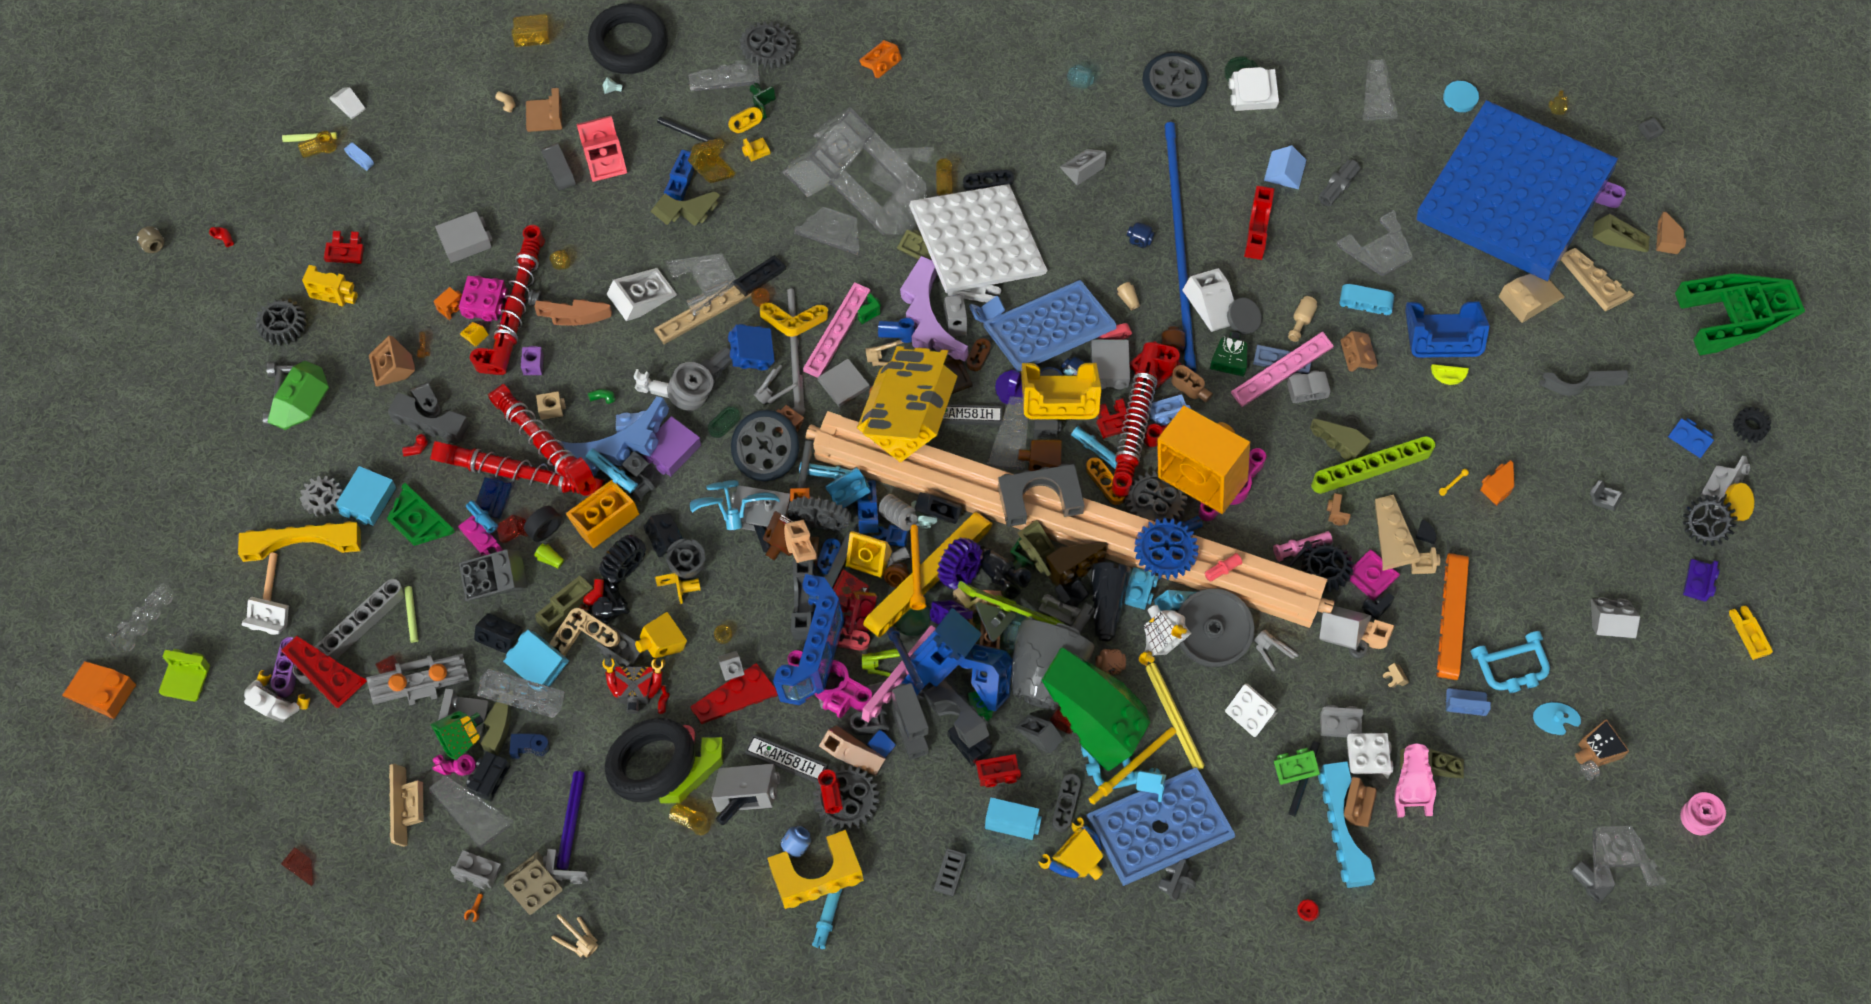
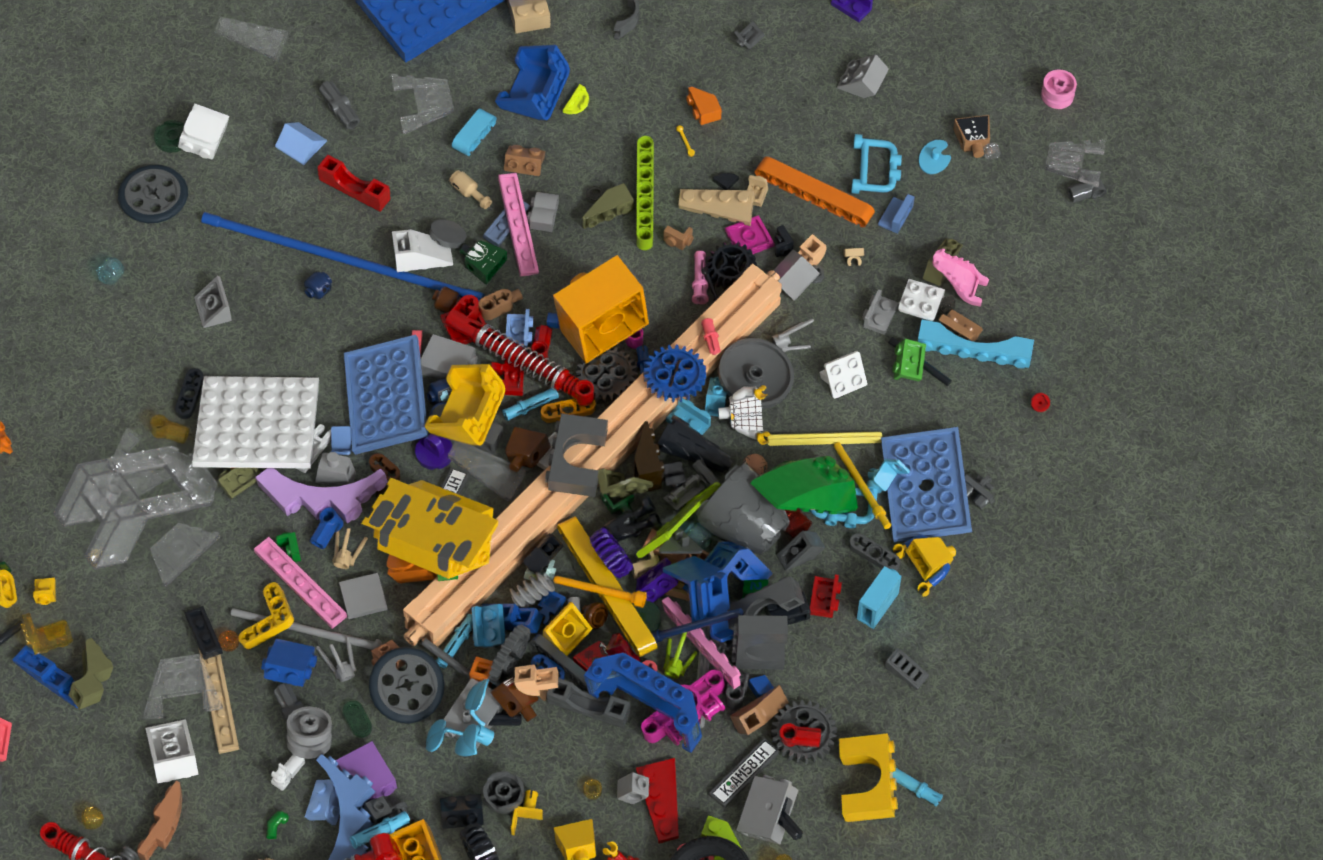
camera: 70 degrees left, 5 degrees down
(796, 841) = (833, 786): medium blue head -> none
(1128, 295) = (380, 319): tan cone -> none

